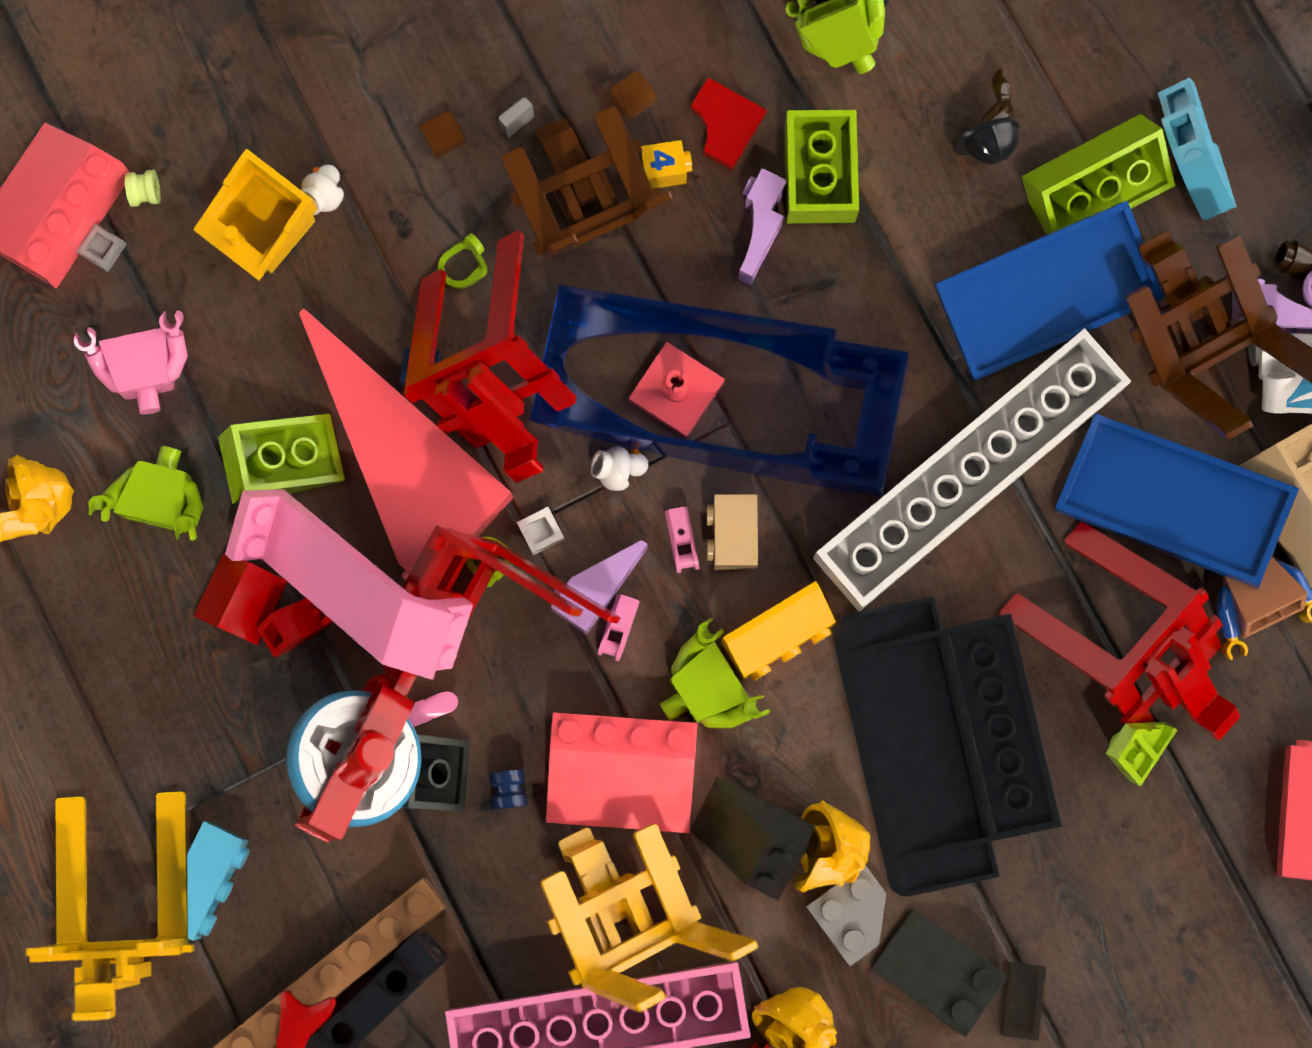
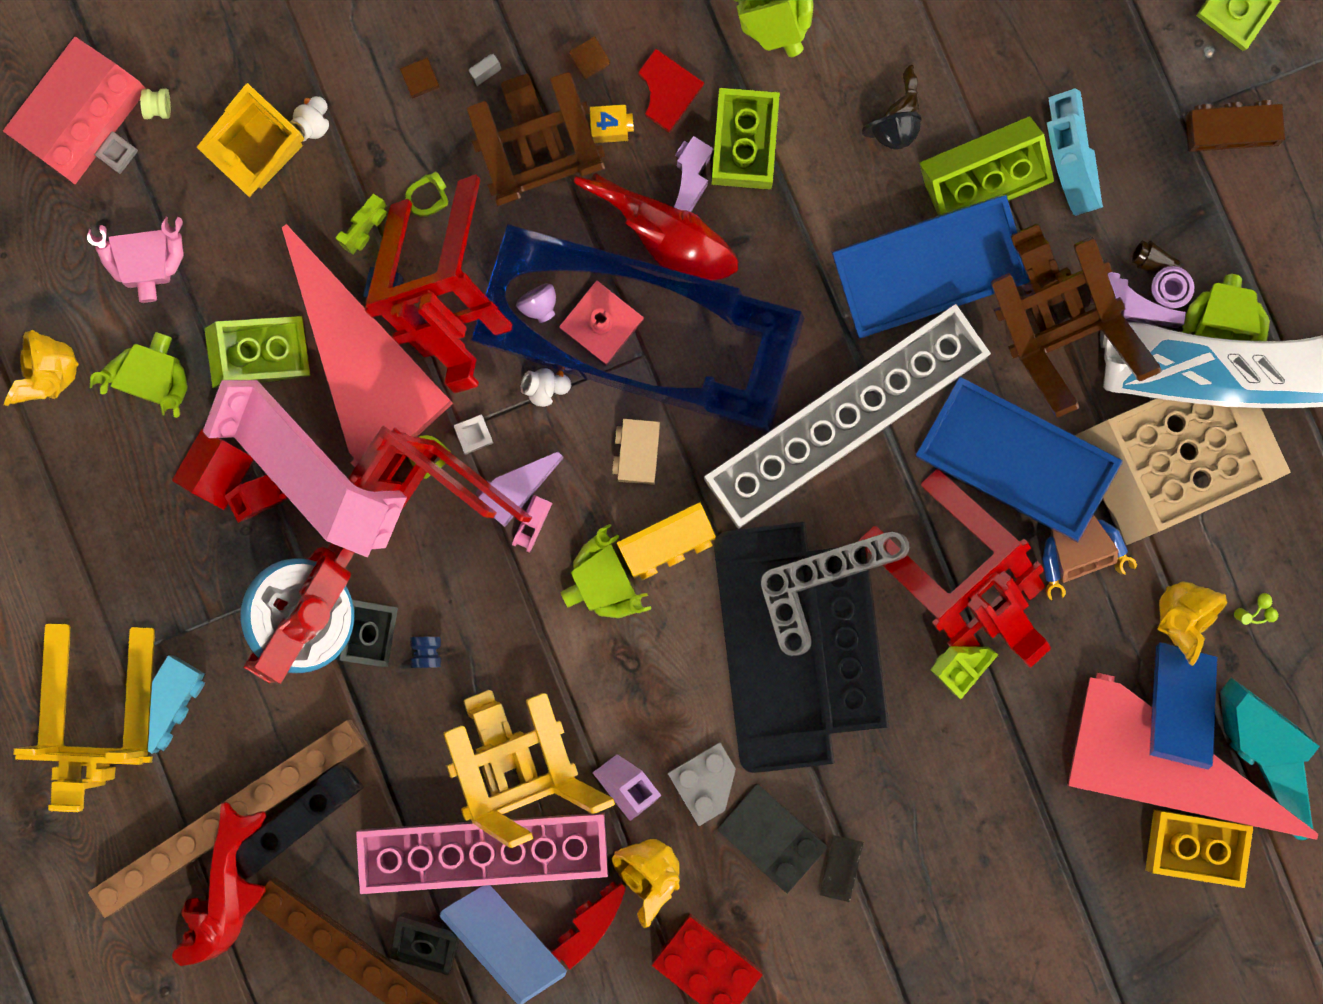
camera: 10 degrees right, 5 degrees up
(393, 296) = (370, 214): none -> lime wing
(433, 707) = (368, 577): bright pink bar -> none
(602, 373) = (538, 303): none -> lavender brick
(621, 772) = (522, 647): coral slope -> none
(681, 534) = (593, 448): bright pink bar -> none
(746, 278) = (670, 235): none -> red piece
(752, 837) = (626, 711): pearl dark grey slope -> none
(761, 921) = (627, 786): none -> lavender slope
(835, 849) = (692, 726): yellow head -> none
(965, 655) = (821, 575): none -> light grey beam

